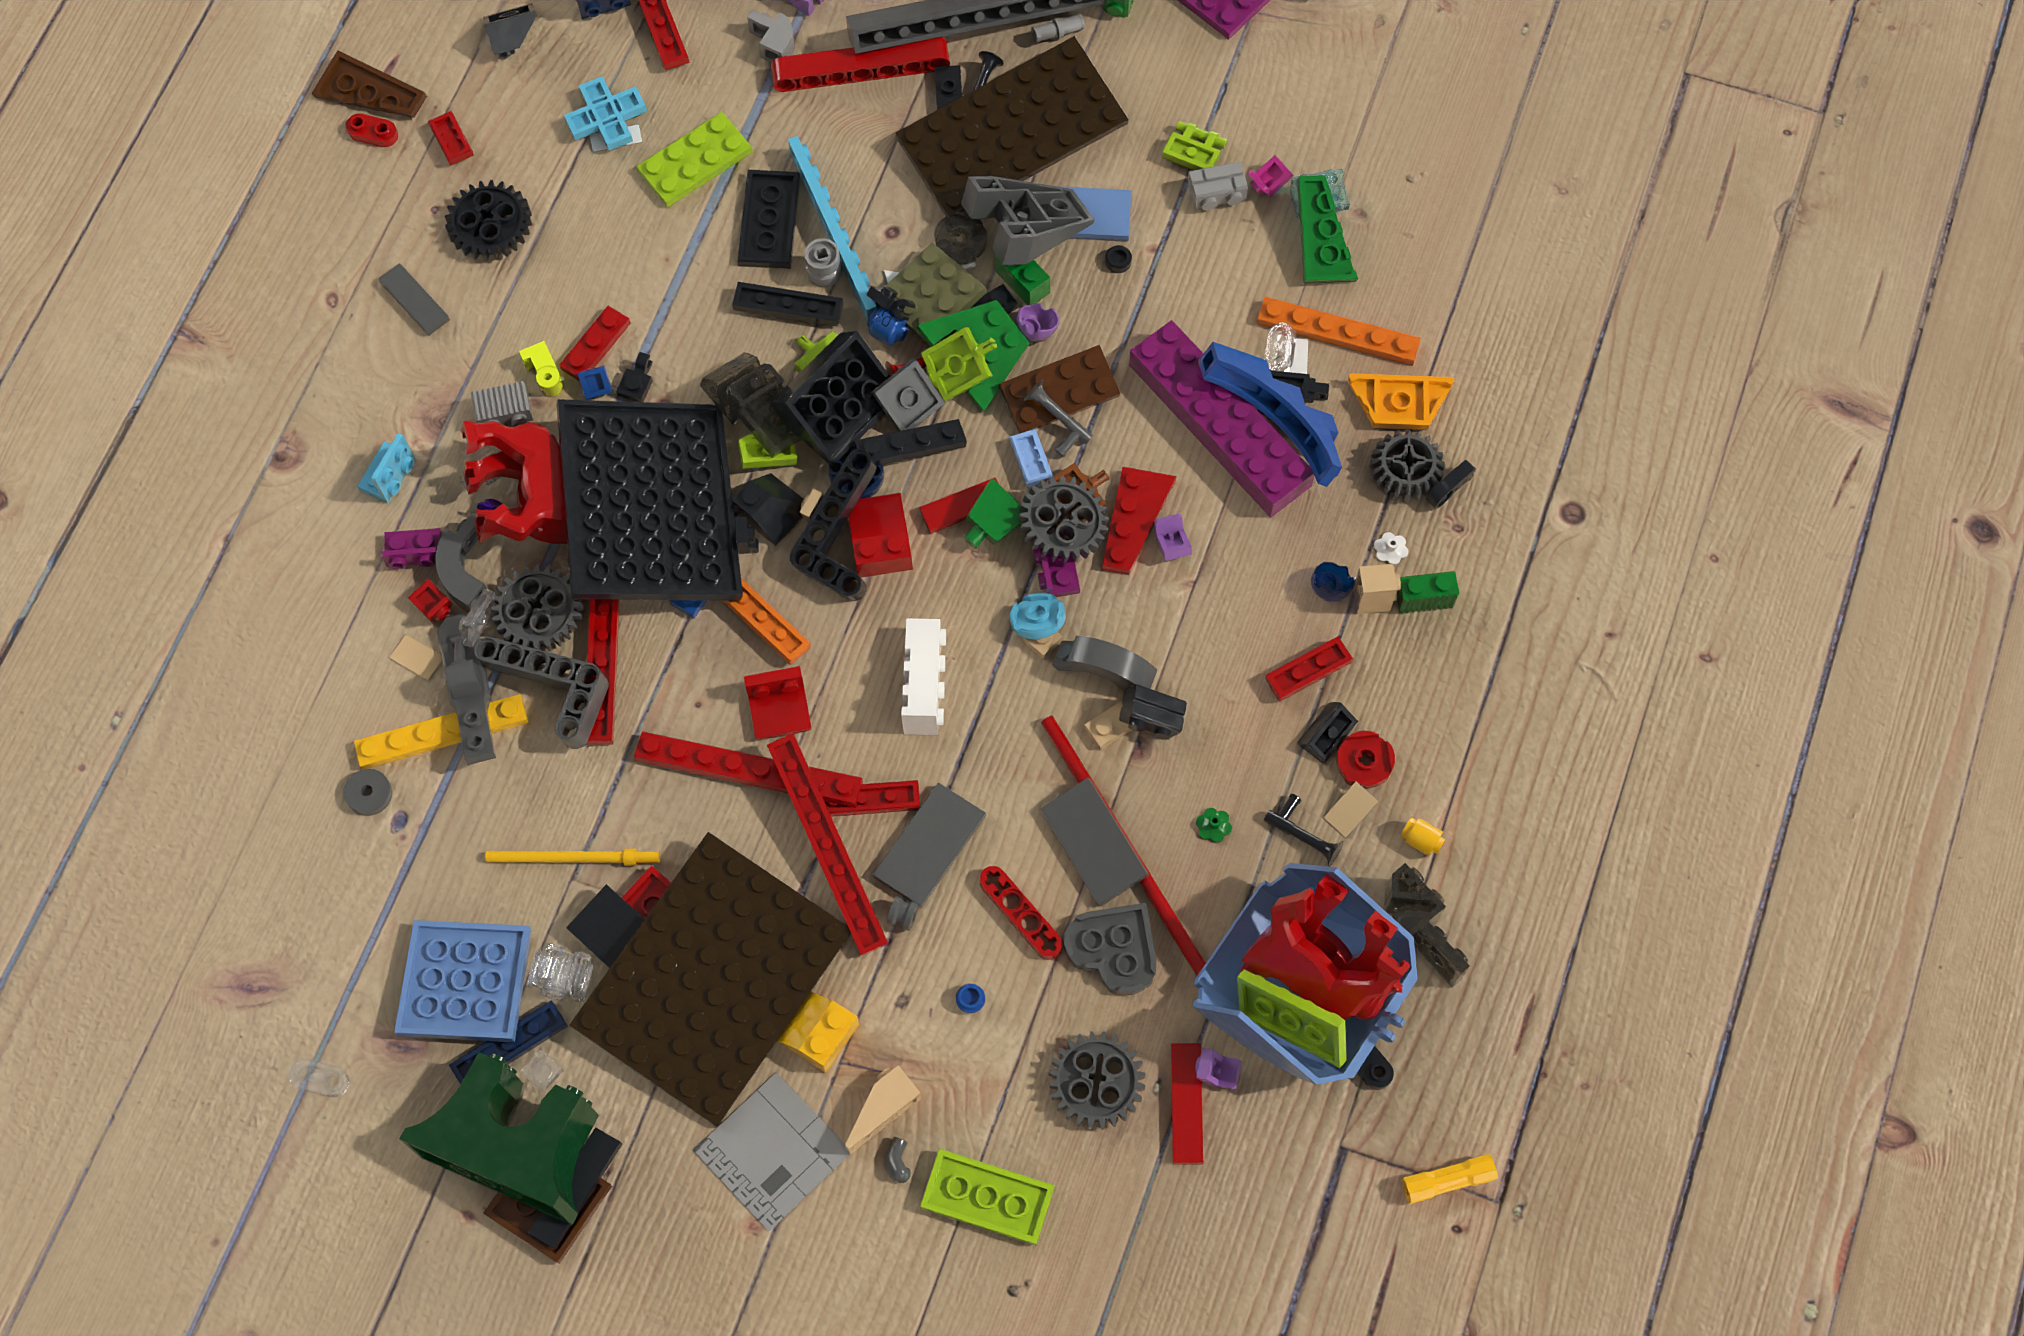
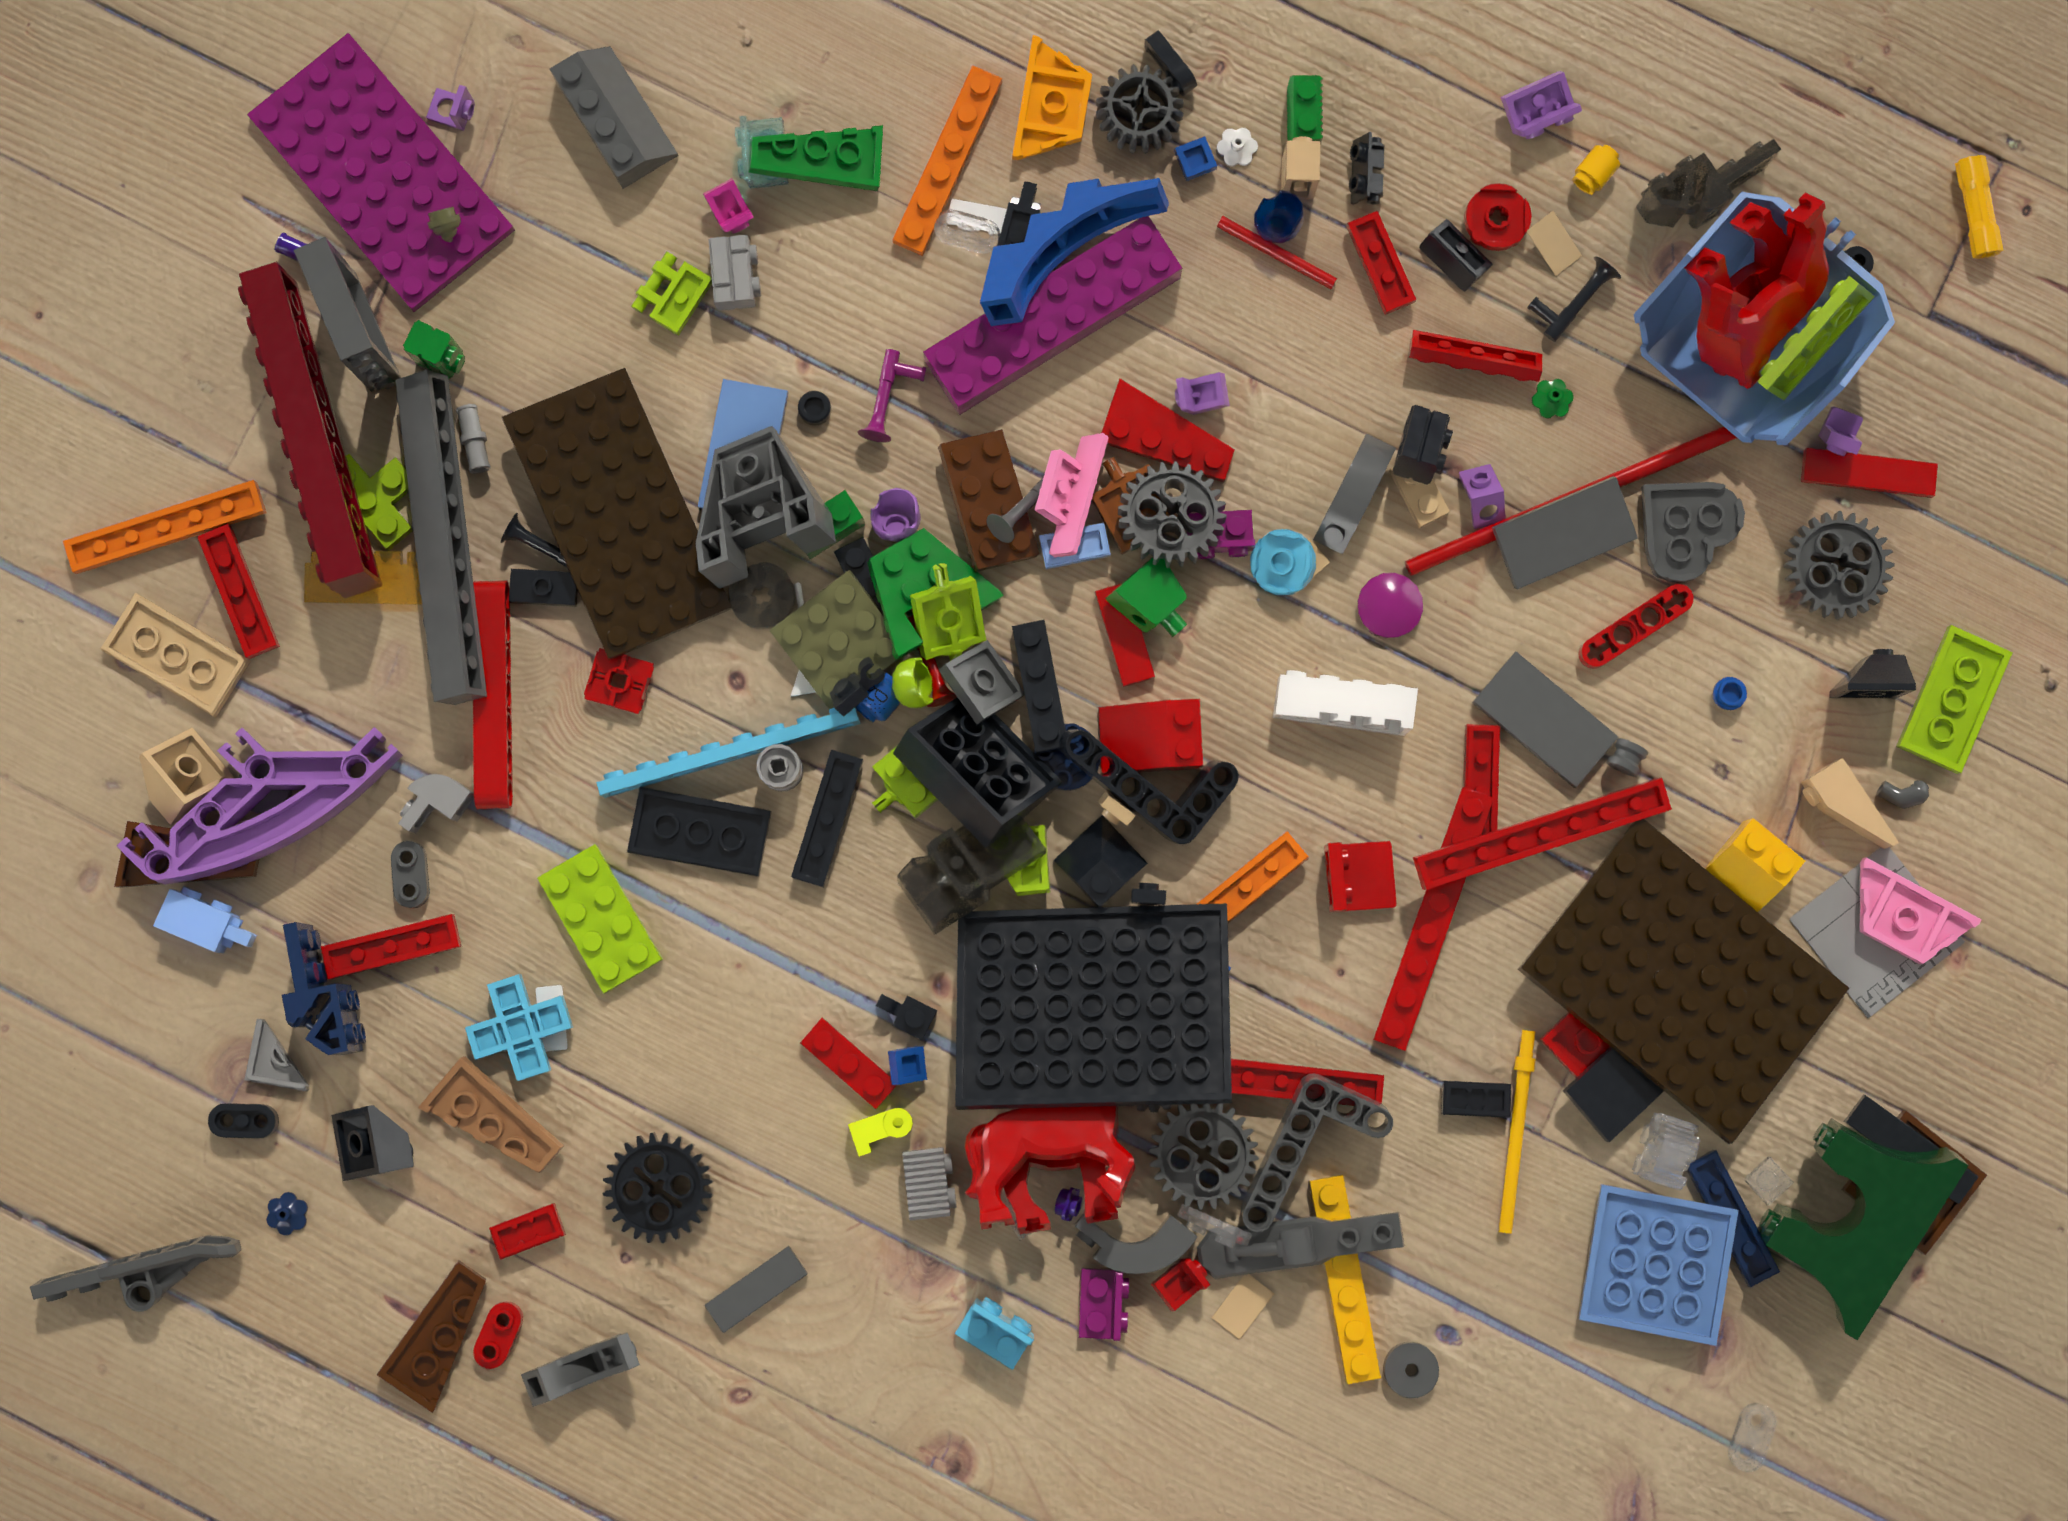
camera: 85 degrees left, 15 degrees up
(345, 180) = (580, 1368): none -> dark grey arch
(540, 100) = (480, 1107): none -> medium nougat wing
(597, 819) = (1476, 1099): none -> black plate
(717, 30) = (413, 874): none -> dark grey plate
(786, 1171) = (1907, 914): none -> bright pink wing
(875, 159) = (626, 699): none -> red piece
(899, 344) = (912, 683): none -> lime hair
(998, 1118) = (1877, 676): none -> black slope
(1013, 708) = (1390, 605): none -> magenta dish
(1073, 440) = (1069, 492): none -> bright pink bracket
(1121, 768) = (1483, 490): none -> medium lavender bracket
(1156, 307) = (876, 430): none -> magenta piece
(1239, 753) = (1476, 356): none -> red plate
(1304, 589) = (1277, 252): none -> red bar
(1330, 88) = (613, 113): none -> dark grey slope
(1373, 513) = (1195, 158): none -> blue plate
(1377, 650) = (1366, 155): none -> black hinge
(1471, 782) = (1540, 106): none -> medium lavender bracket

